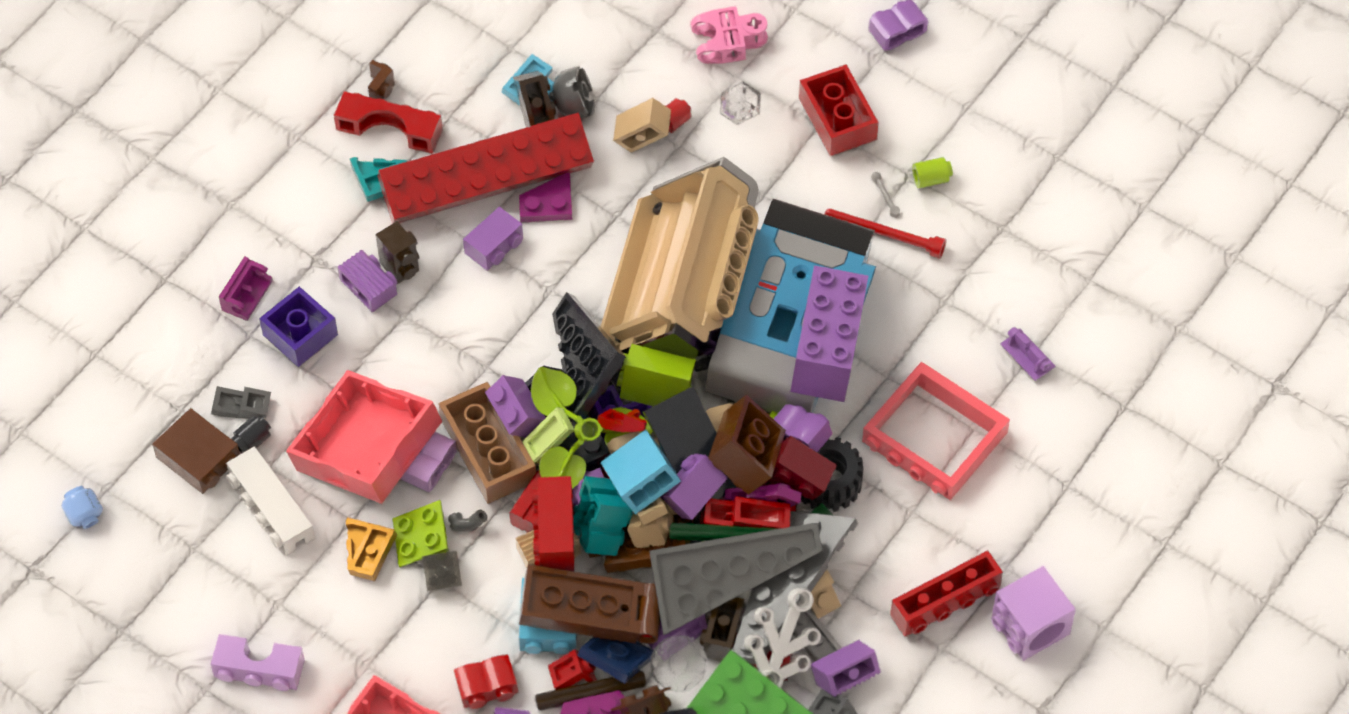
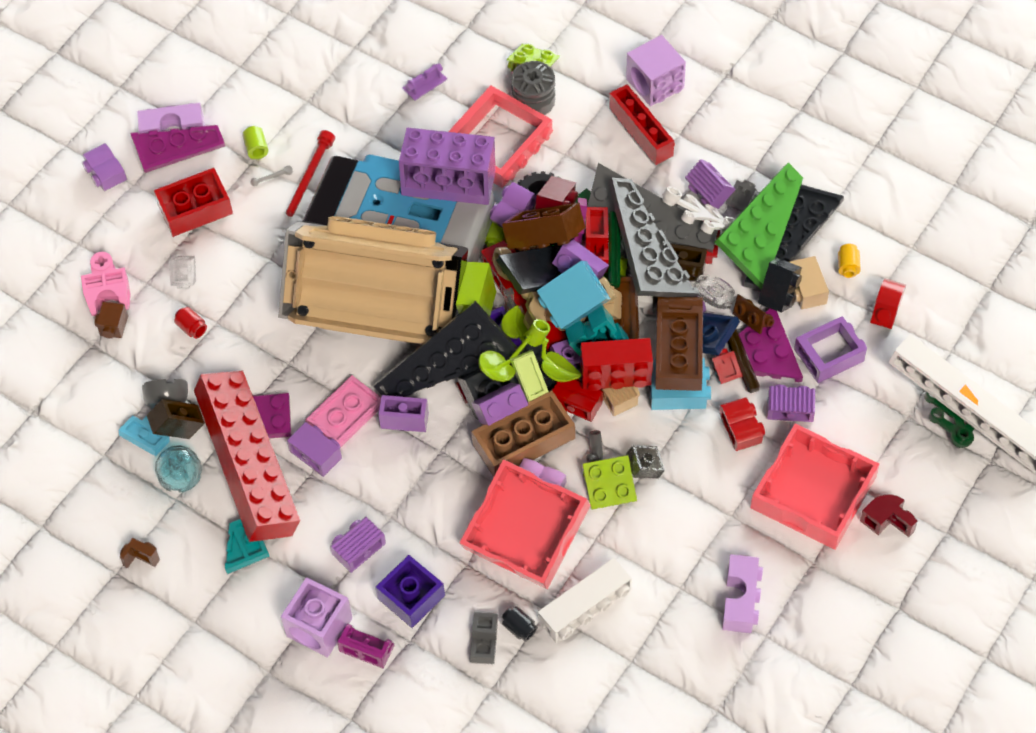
camera: 90 degrees left, 0 degrees up
(196, 450) = (538, 665): reddish brown brick -> none
(273, 234) = (316, 617): none -> lavender brick
(359, 113) = (193, 517): red arch -> none
(367, 547) = (624, 522): wing -> none
(398, 251) = (334, 514): dark brown brick -> none
(483, 113) = (178, 468): none -> clear light blue cylinder
(527, 322) = (403, 413): none -> medium lavender brick
(544, 270) = (345, 410): none -> bright pink tile
(622, 422) = (524, 313): red slope -> none
(642, 125) = (204, 337): tan brick -> none
(680, 42) = (111, 320): none -> reddish brown brick
(927, 89) = (172, 146): none -> magenta wing
(962, 69) = (163, 118): none -> lavender arch
(1005, 469) = (534, 86): none -> dark grey wheel
(1064, 477) = (527, 53): none -> lime hinge

